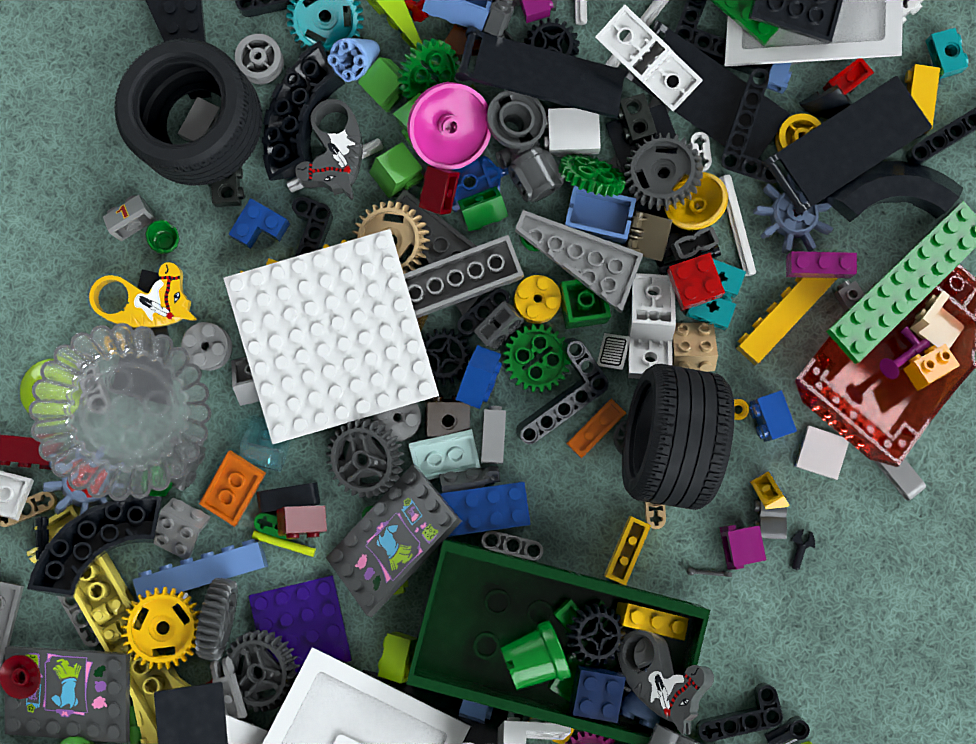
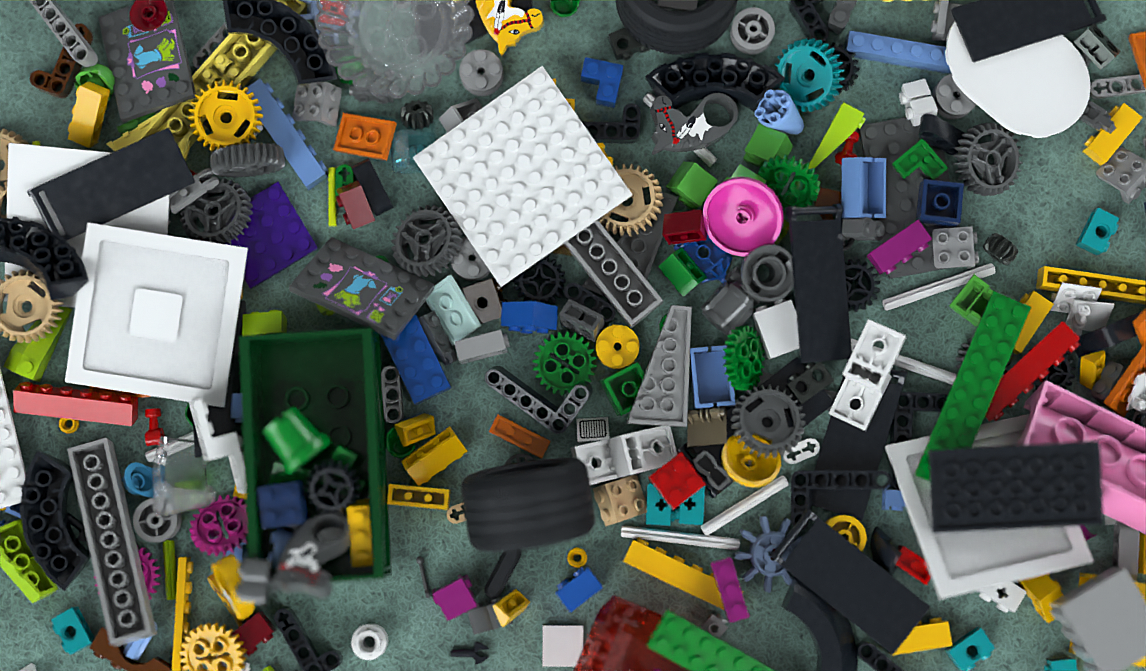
camera: 70 degrees right, 0 degrees up
(228, 426) = (417, 115): none -> pearl dark grey gear
(555, 531) = (416, 429): none -> yellow slope
(564, 552) = (395, 447): none -> green hair
(590, 522) = (434, 456): none -> yellow brick
(736, 495) = (501, 573): none -> black piece
(749, 299) = (680, 537): none -> white axle
(767, 657) = (359, 645): none -> white piece

